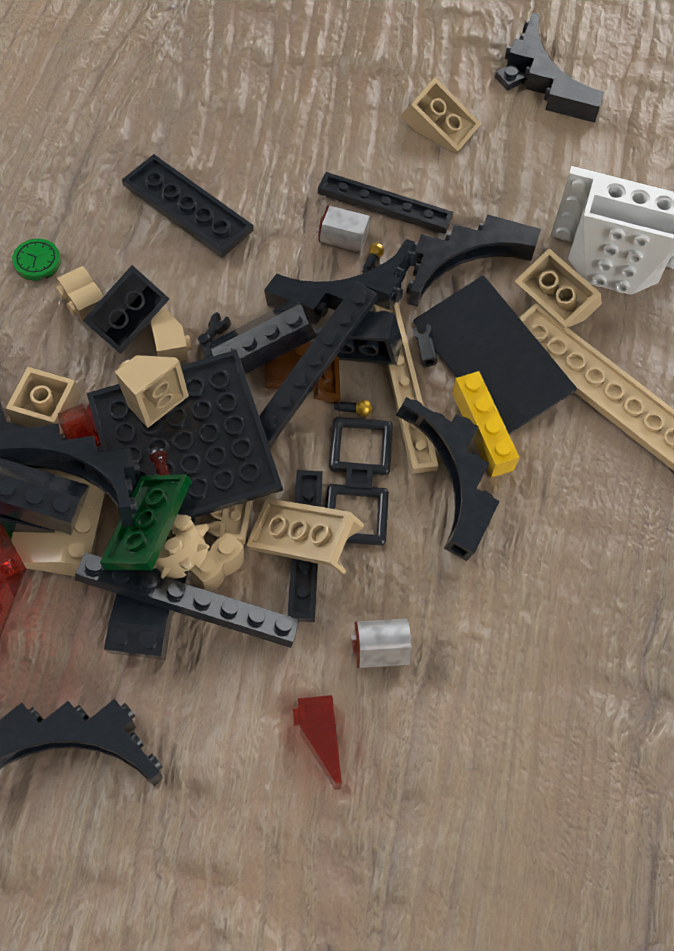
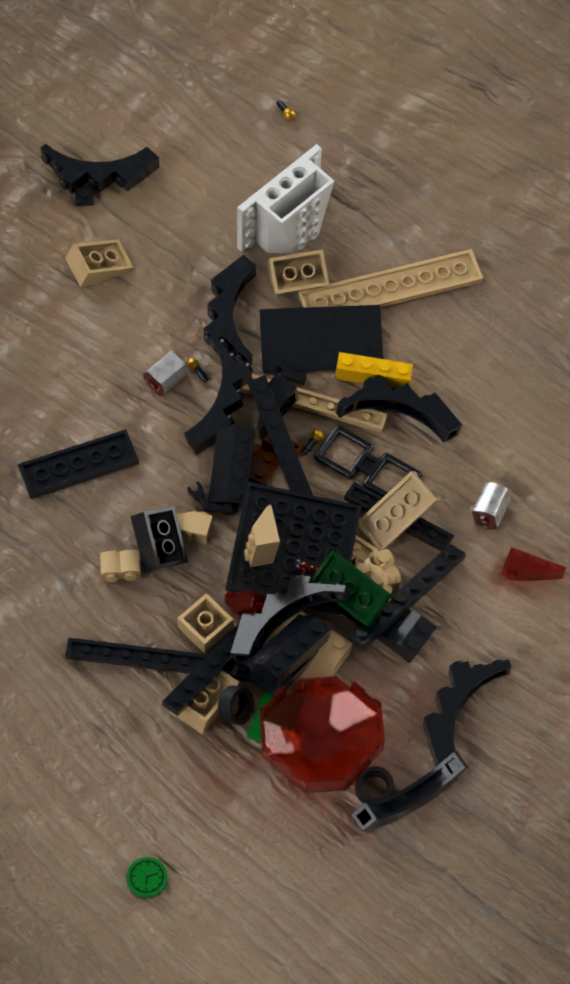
camera: 60 degrees left, 0 degrees up
(36, 259) = (67, 584): green tile -> none
(385, 202) = (154, 337): black plate -> none

